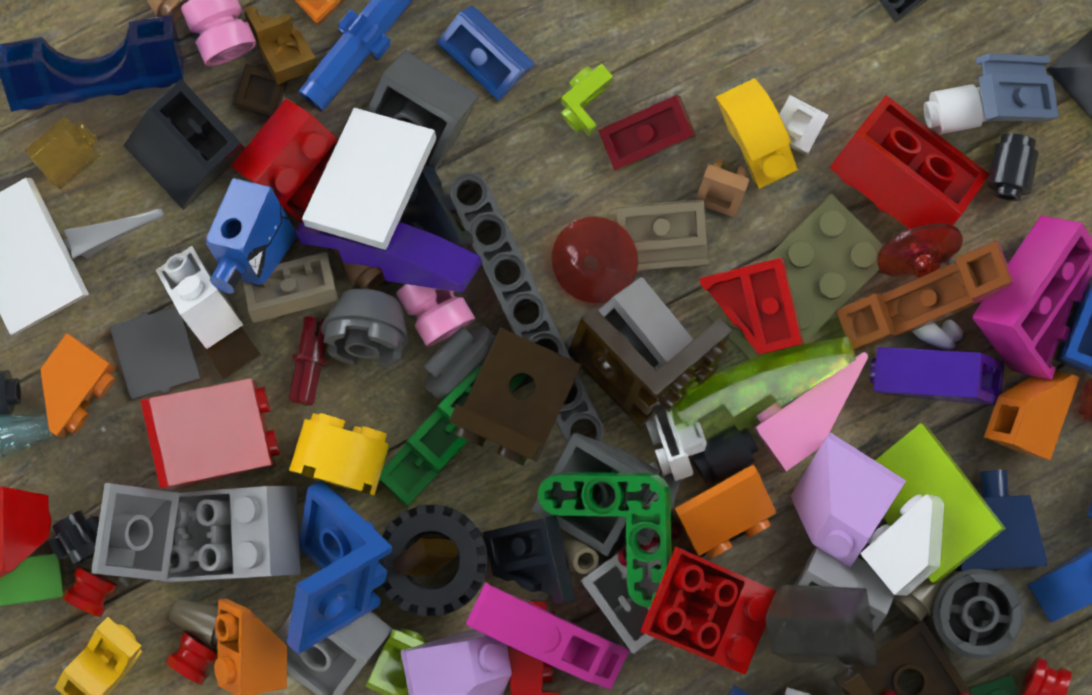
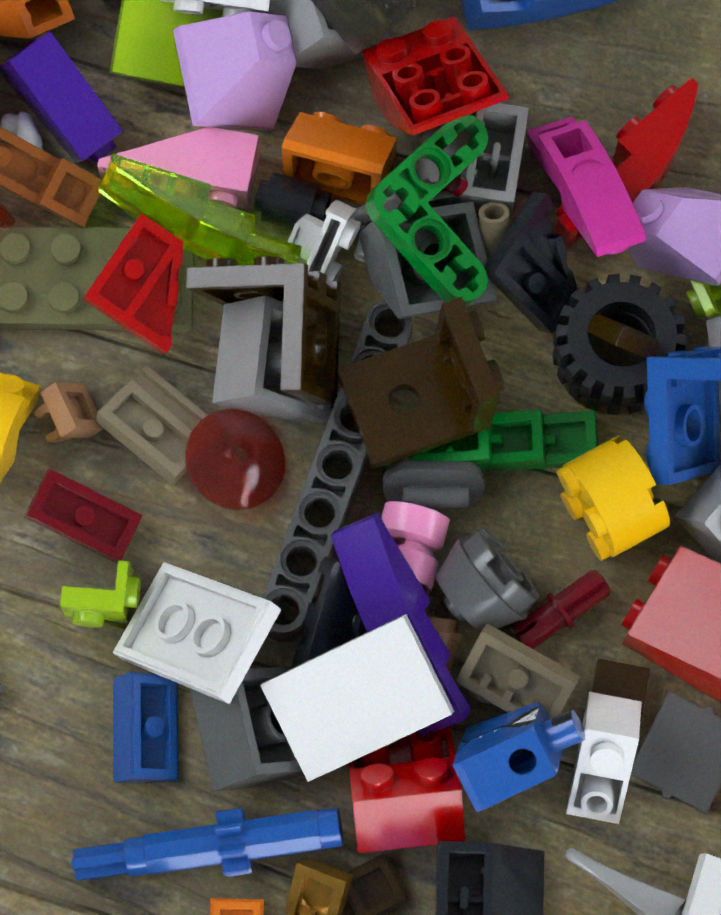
camera: 140 degrees left, 10 degrees down
(505, 127) = (197, 632): none -> white tile

